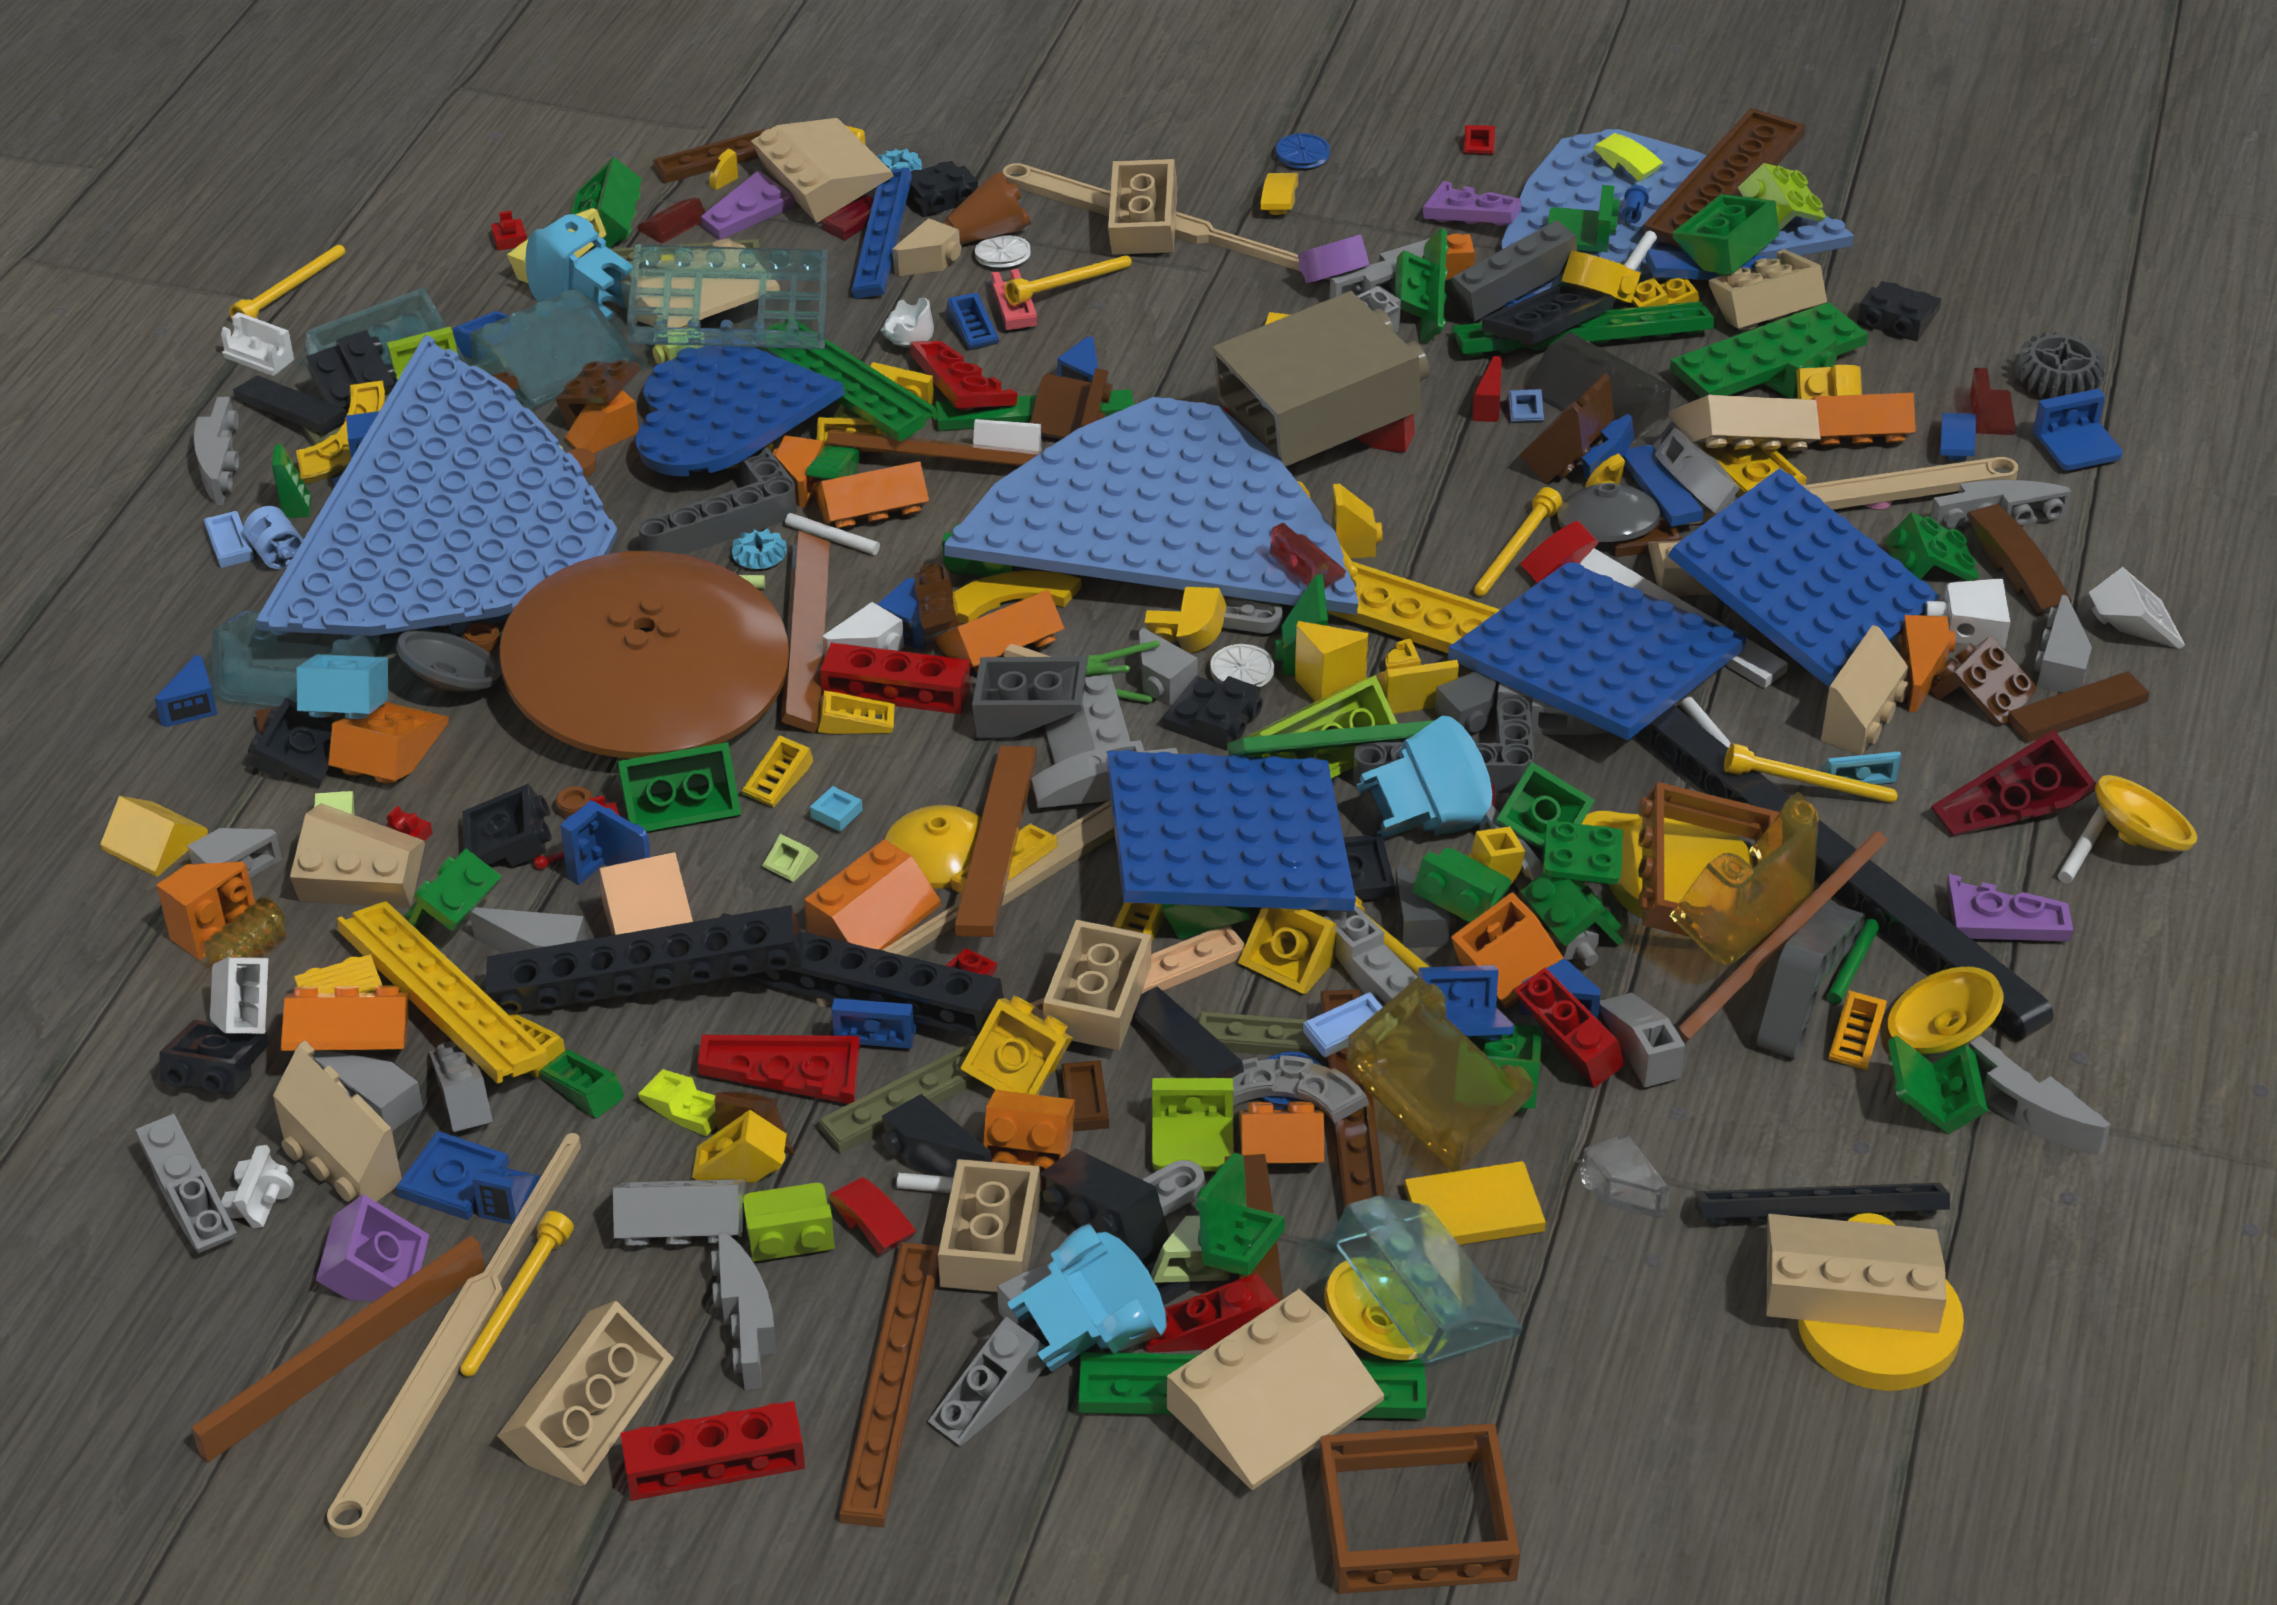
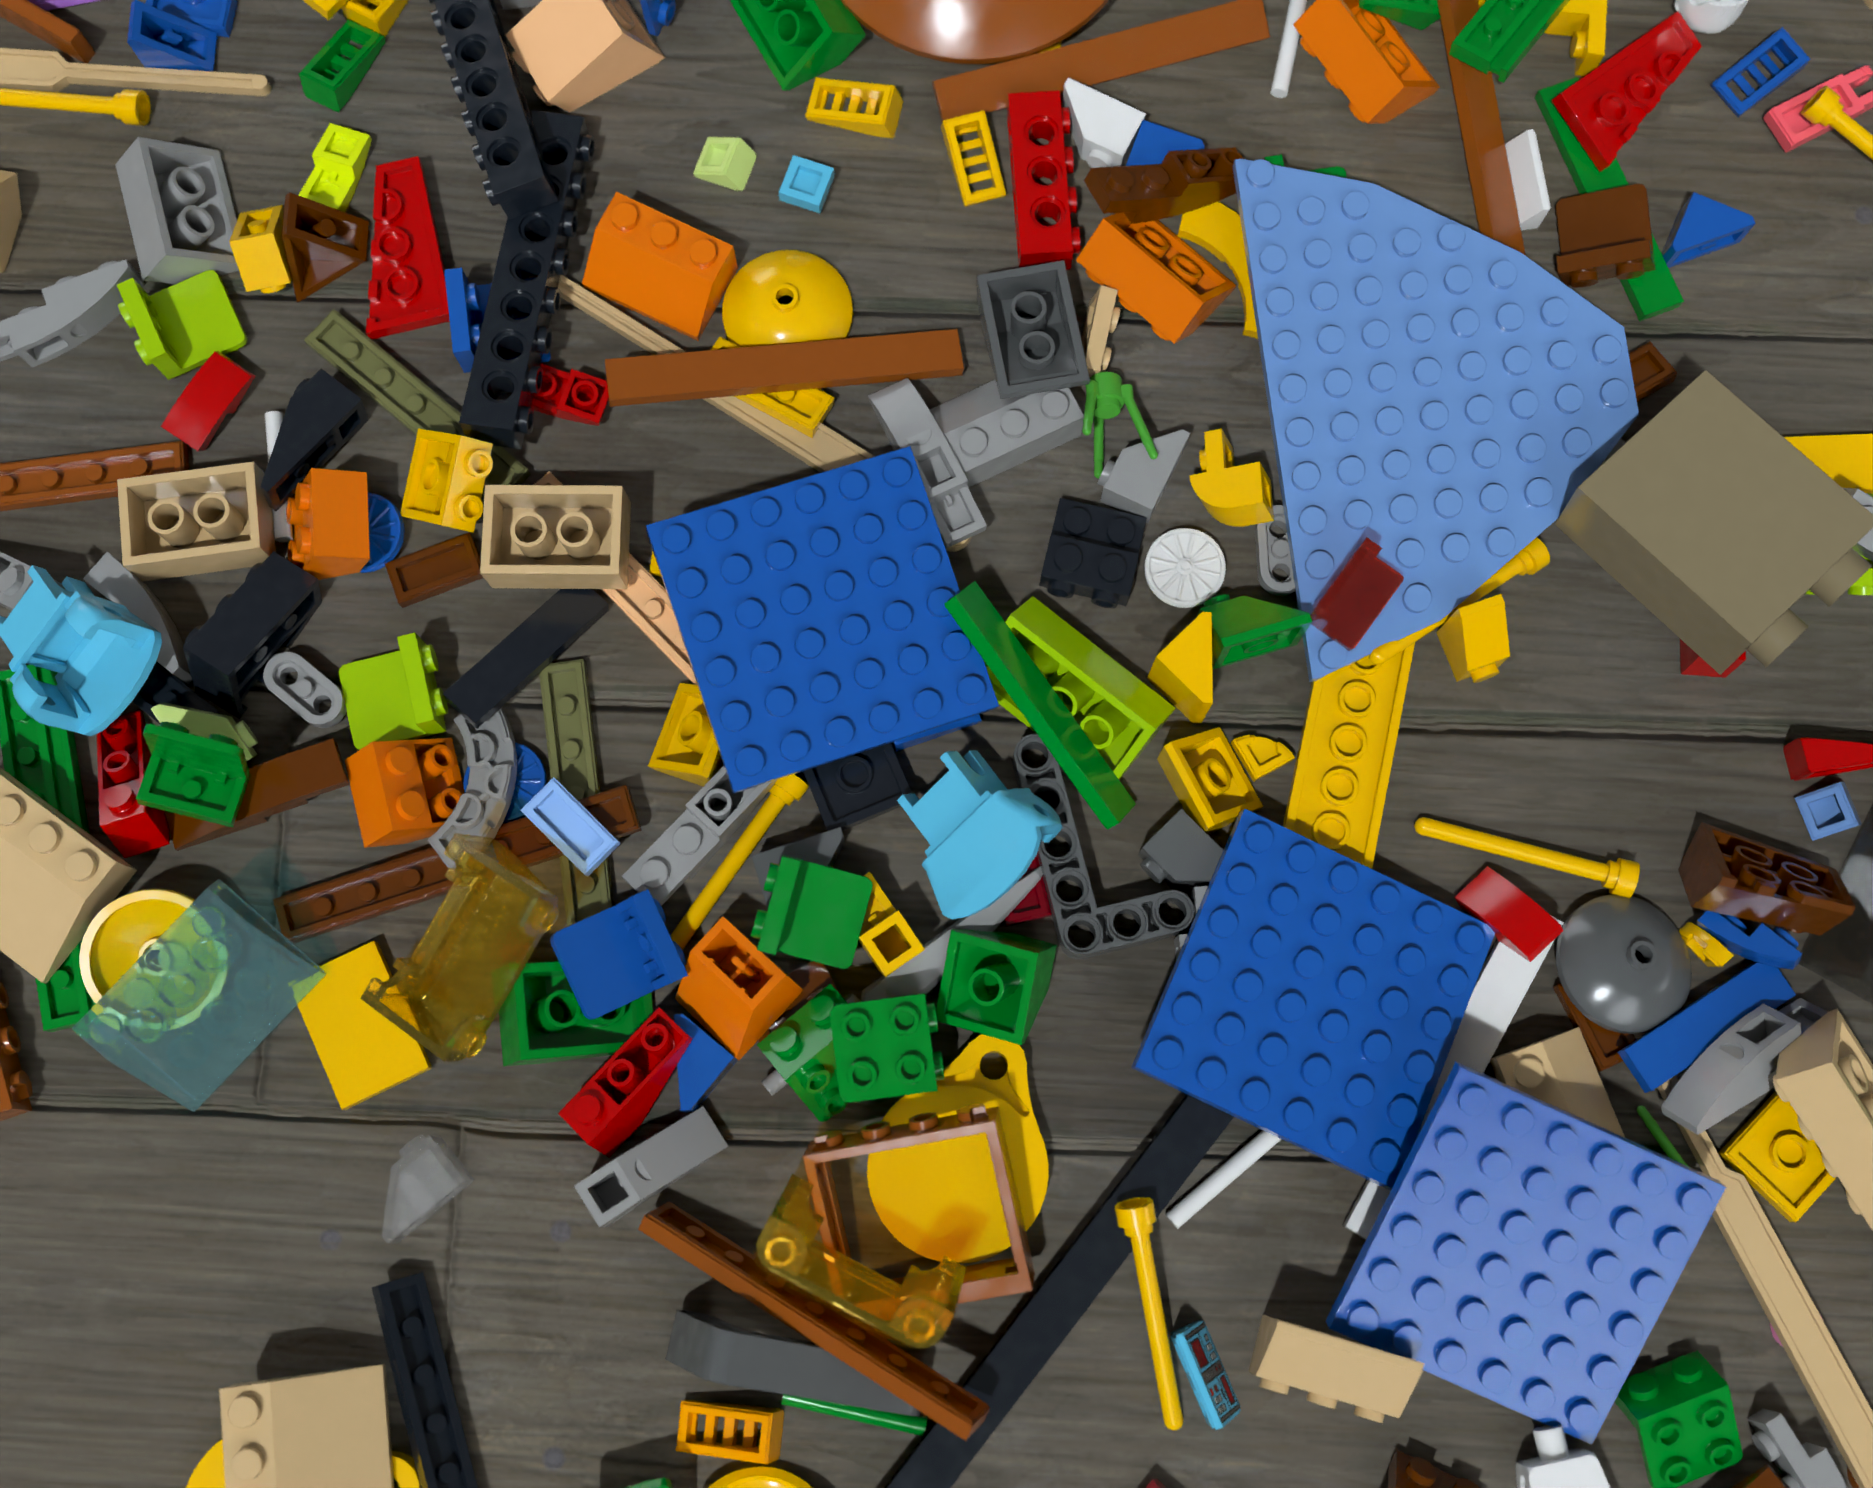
camera: 75 degrees right, 35 degrees up
(1925, 651) = (1463, 1435): orange slope -> none

